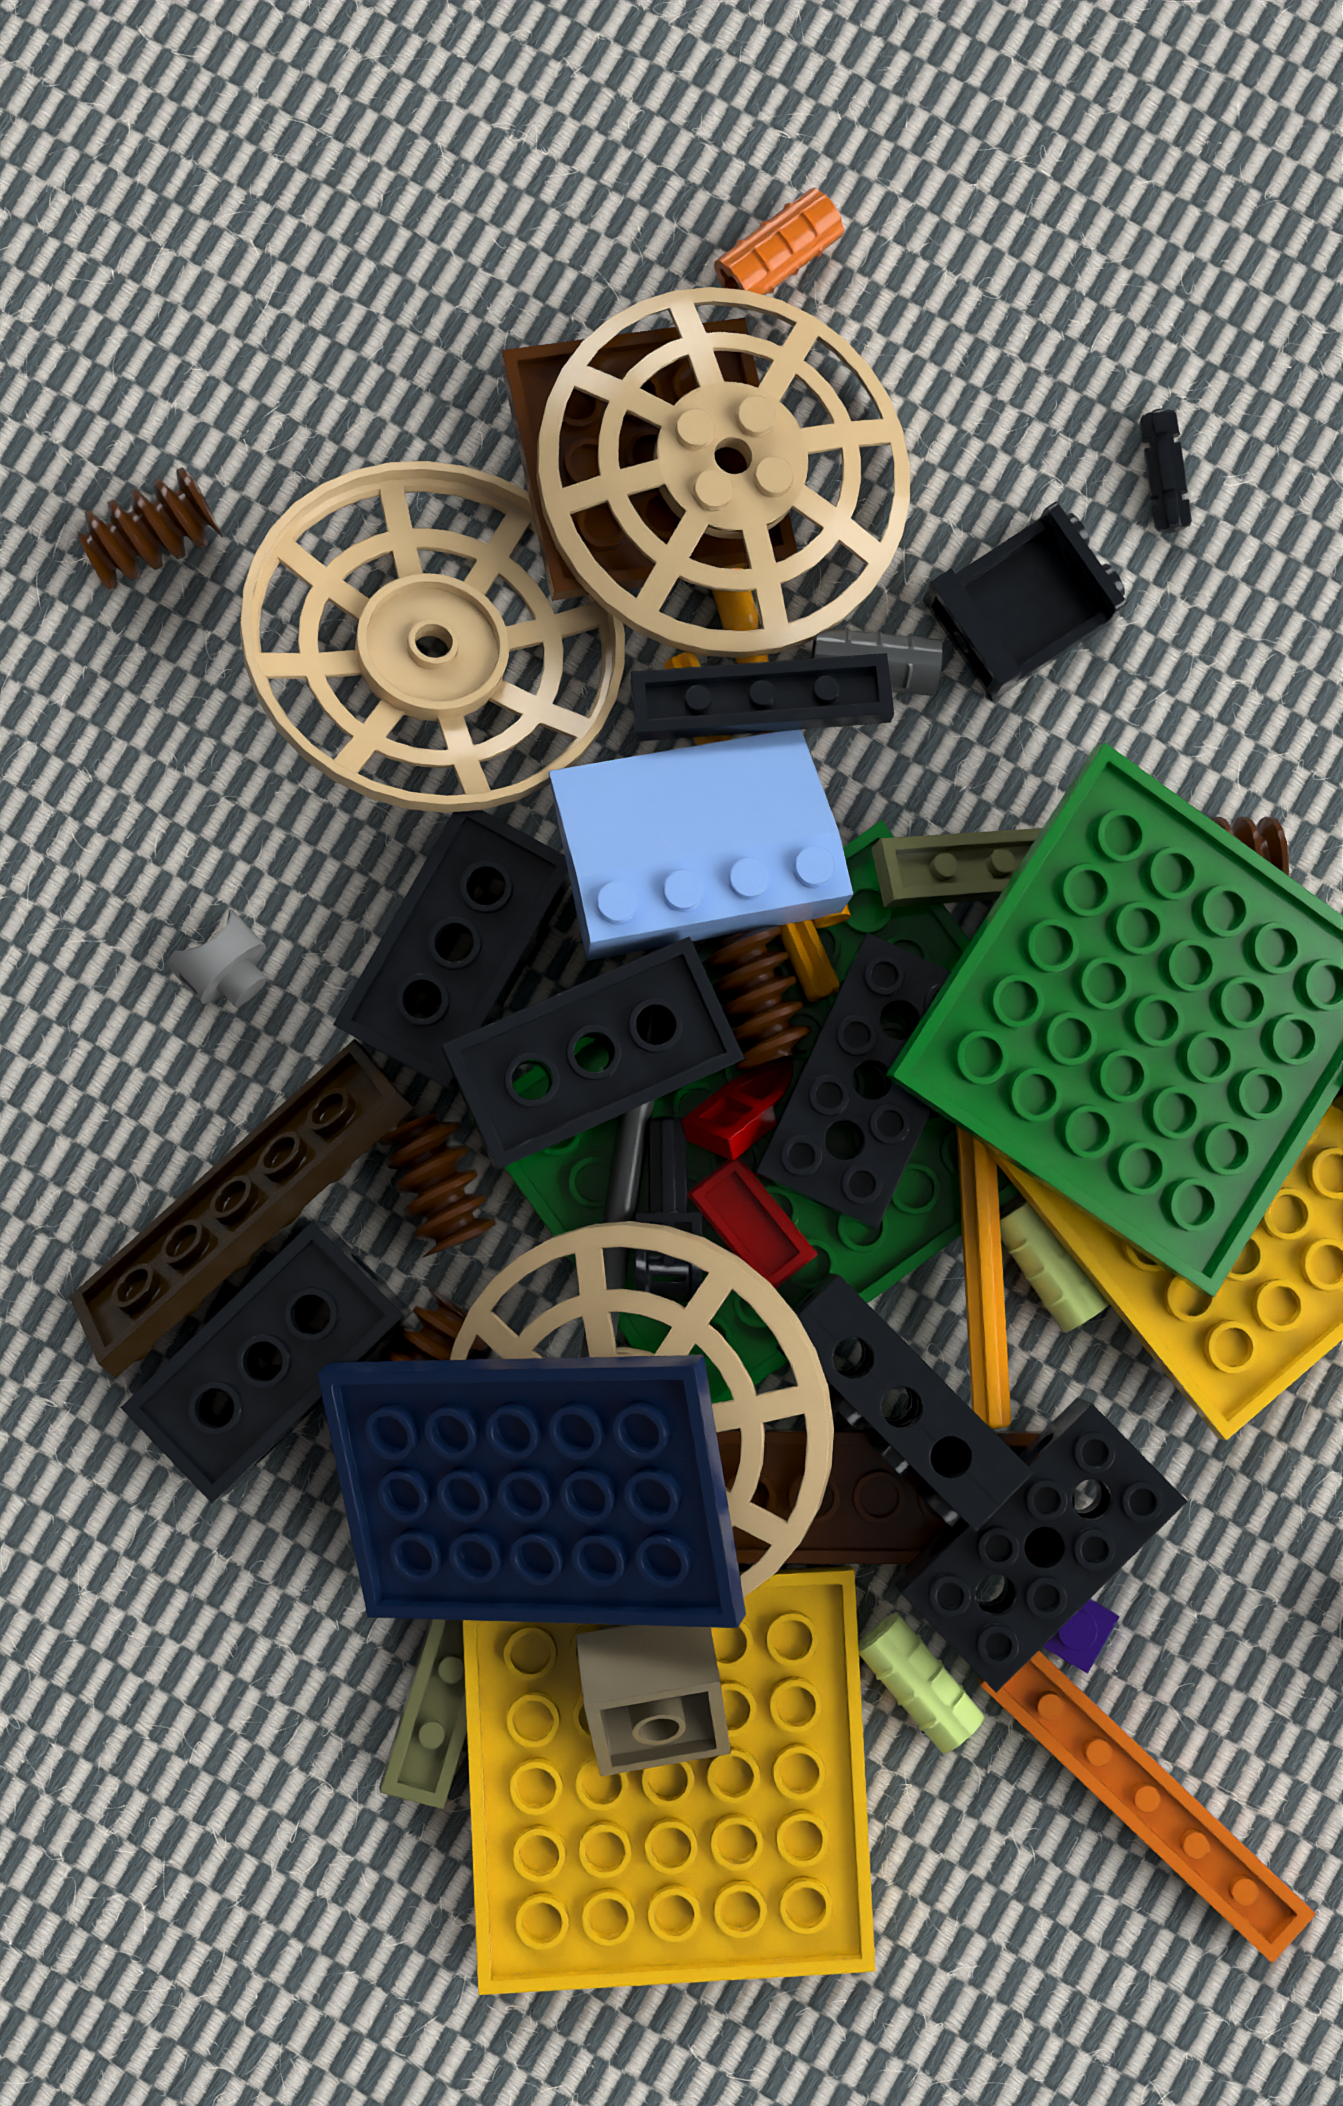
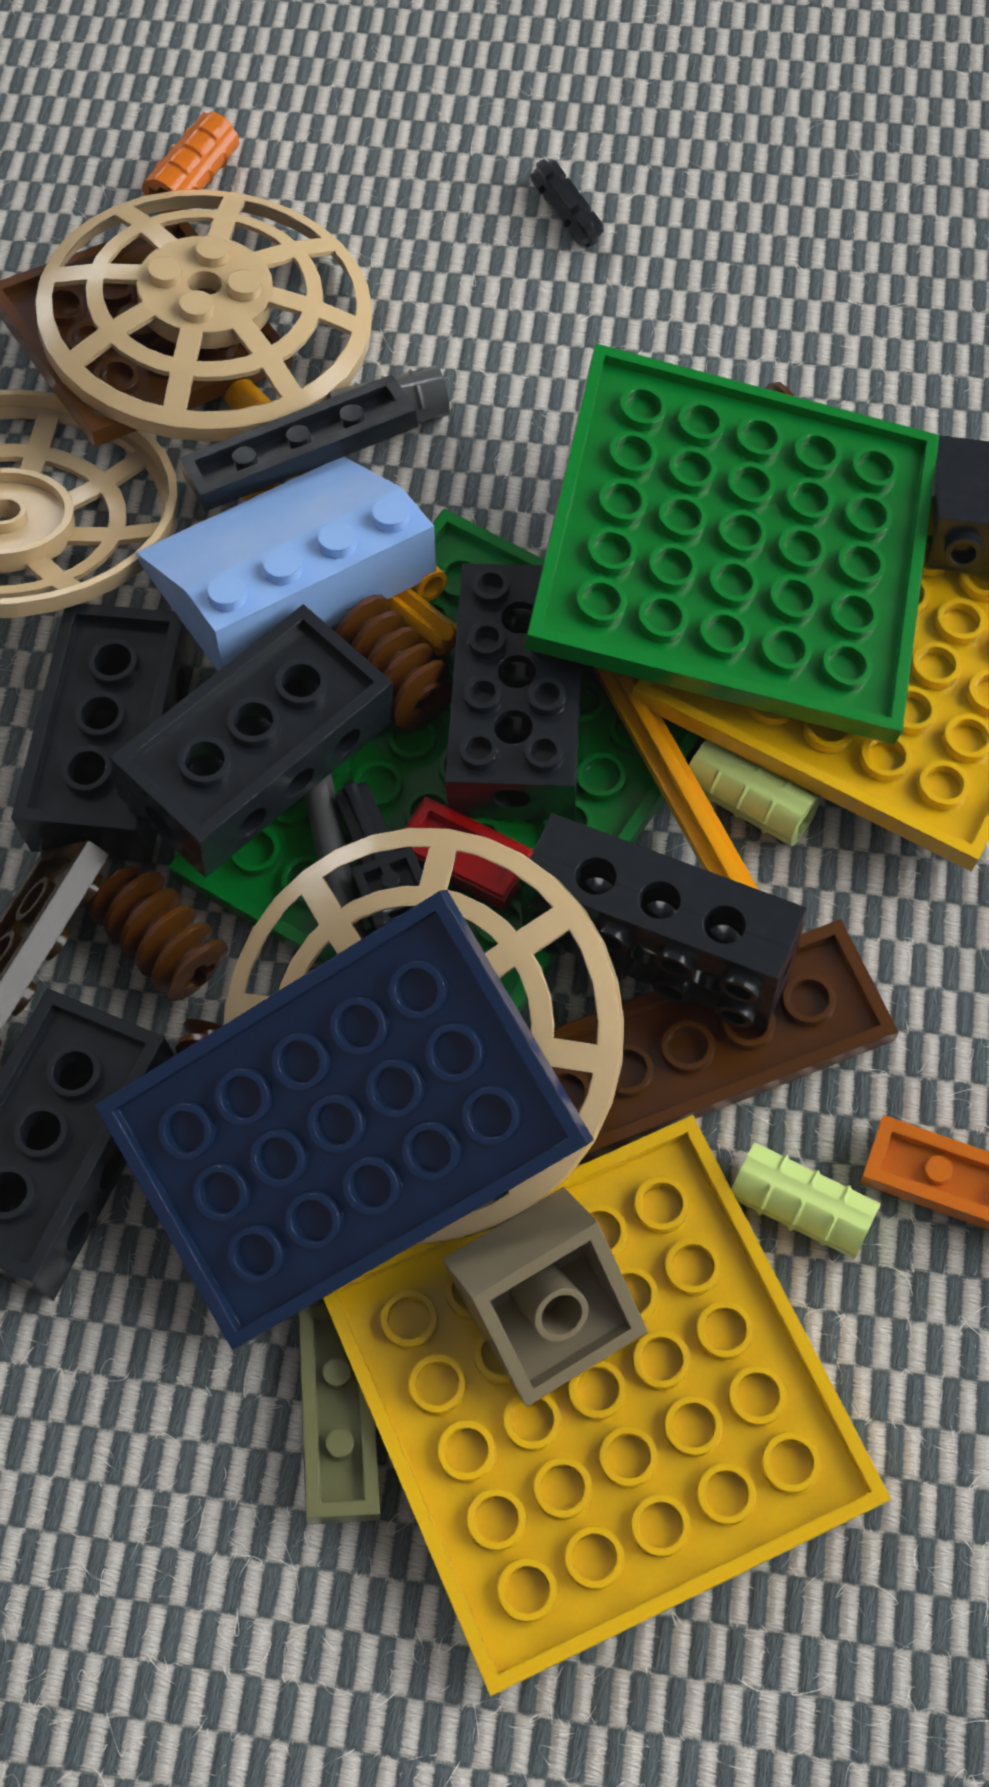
camera: 15 degrees left, 20 degrees down
(739, 1111) = (411, 762): red plate -> none
(949, 866) = (504, 516): olive plate -> none
(1026, 601) = (496, 322): black panel -> none
(1082, 1552) = (868, 1047): black brick -> none
(1084, 1635) = (927, 1095): dark purple plate -> none

